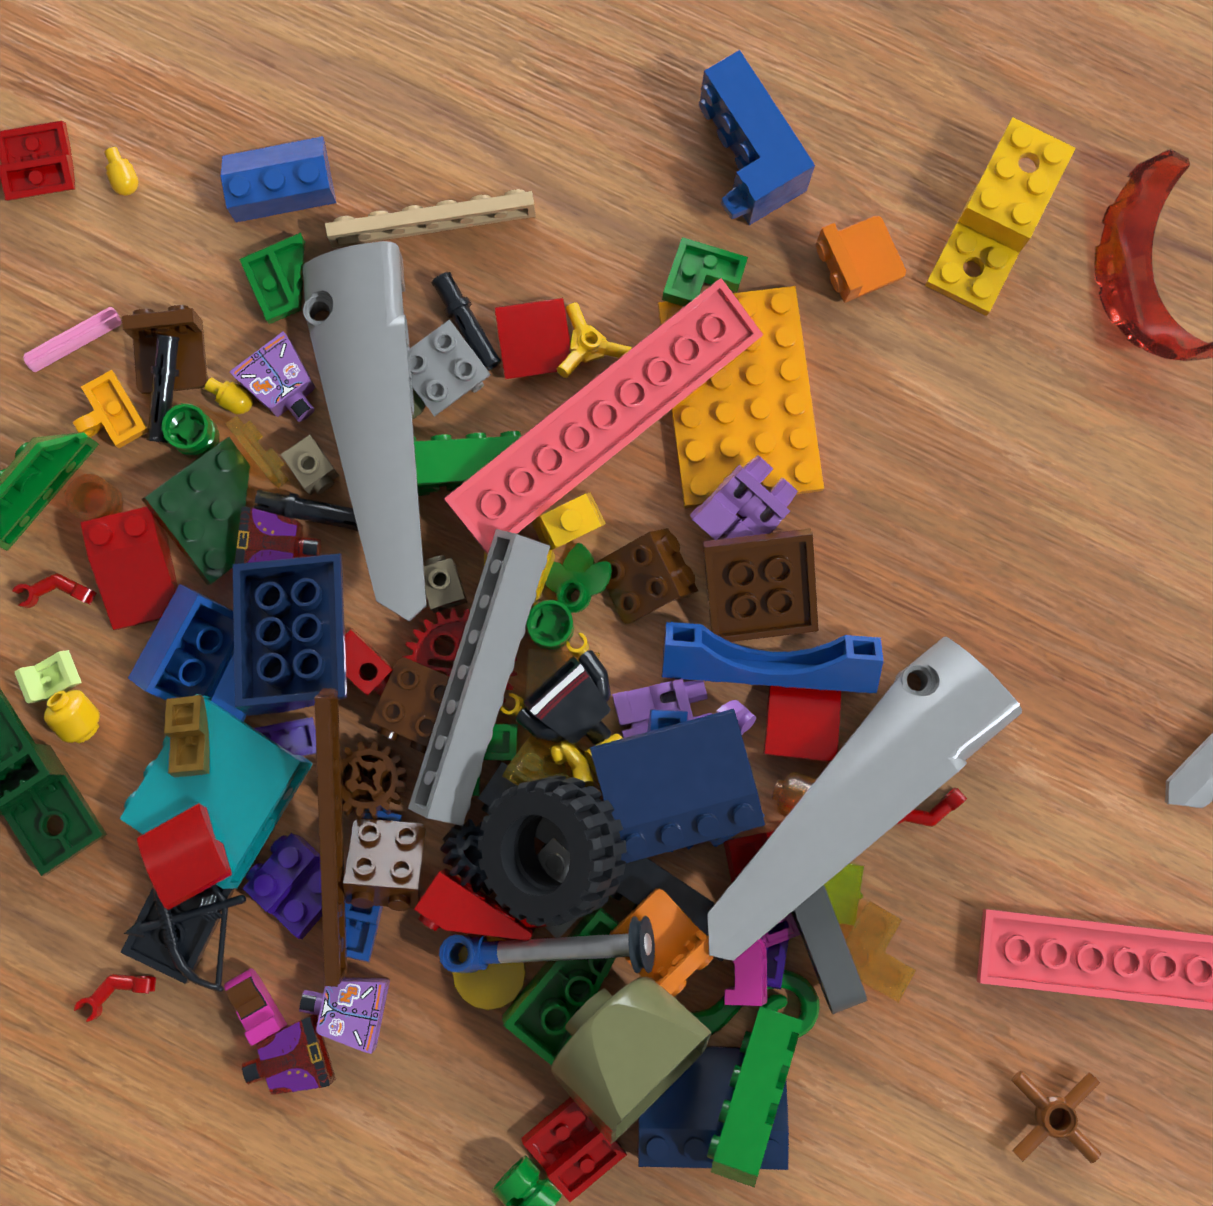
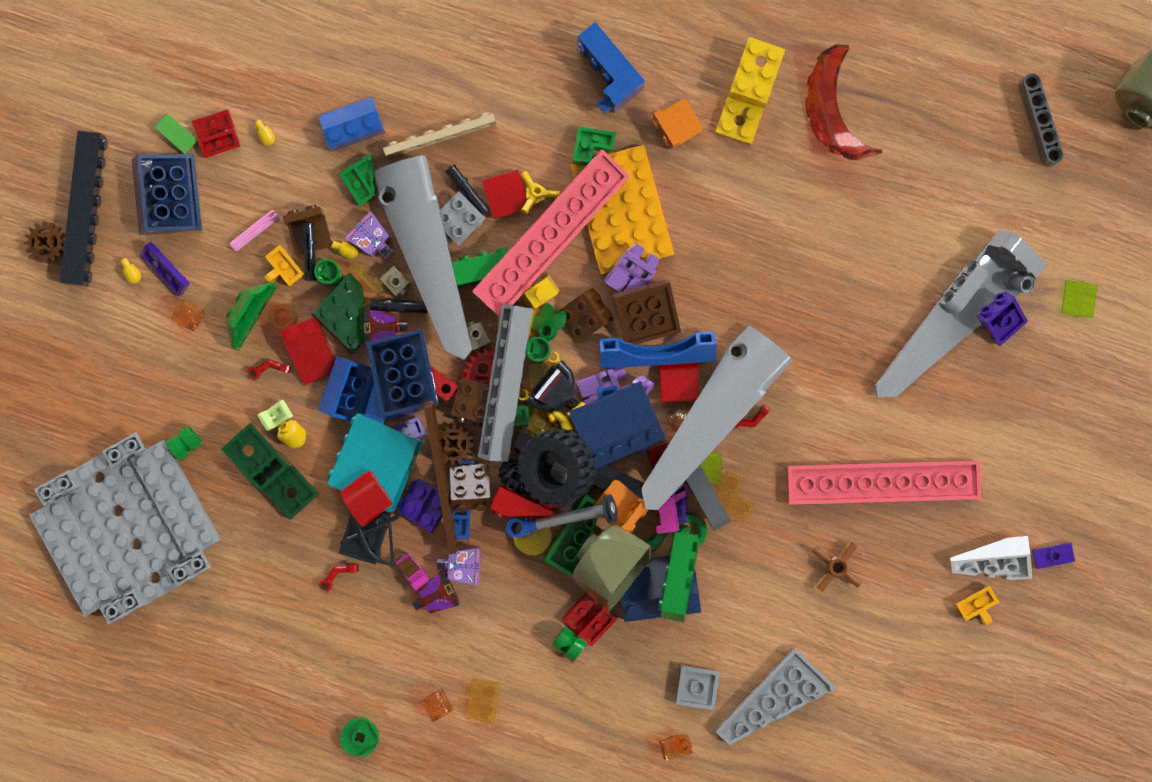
camera: 10 degrees left, 5 degrees up
(189, 736) = (357, 436): pearl gold slope -> none

